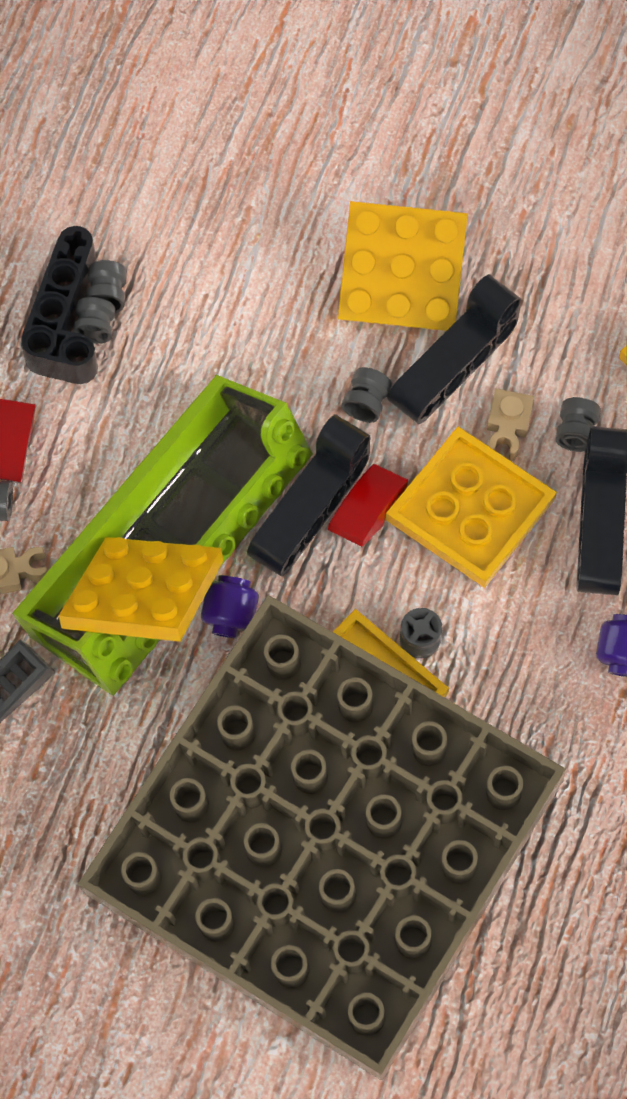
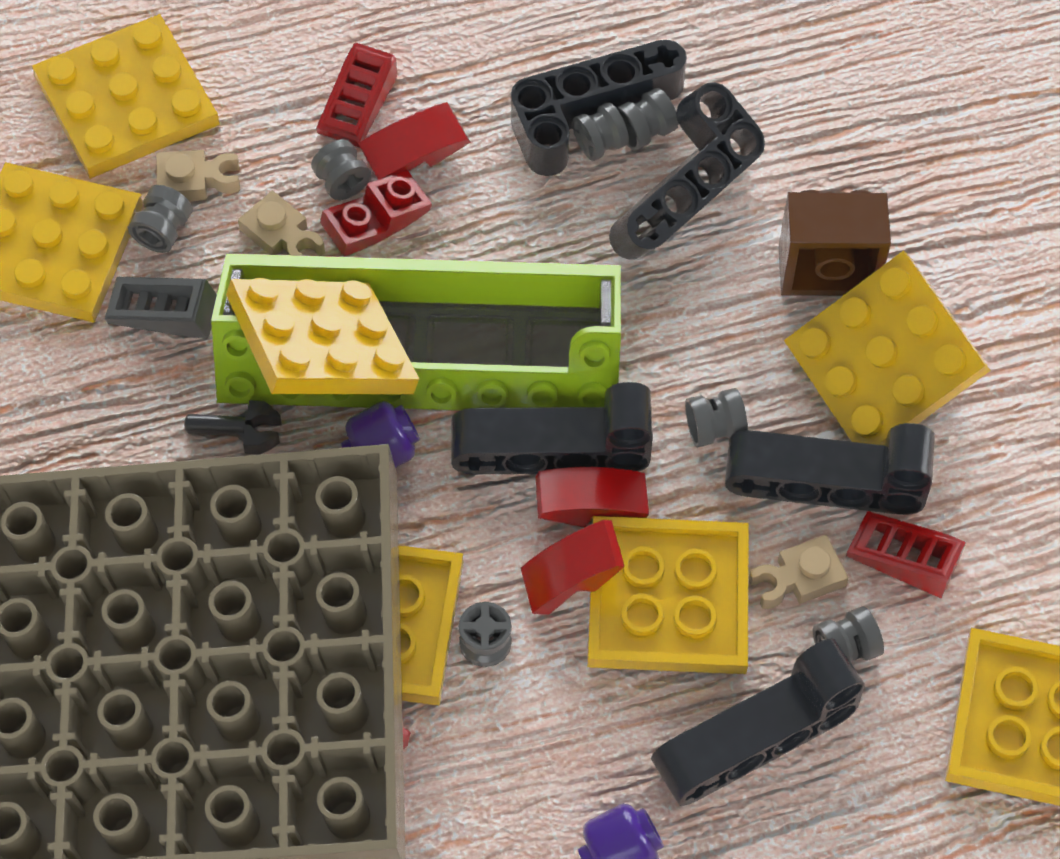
camera: 55 degrees right, 5 degrees down
(42, 501) = (382, 211): none -> red slope
(145, 692) = (240, 426): none -> black bar
(182, 287) = (684, 183): none -> black beam
(299, 239) = (832, 241): none -> reddish brown brick
(417, 547) = (572, 564): none -> red slope
(548, 333) = (928, 541): none -> red slope

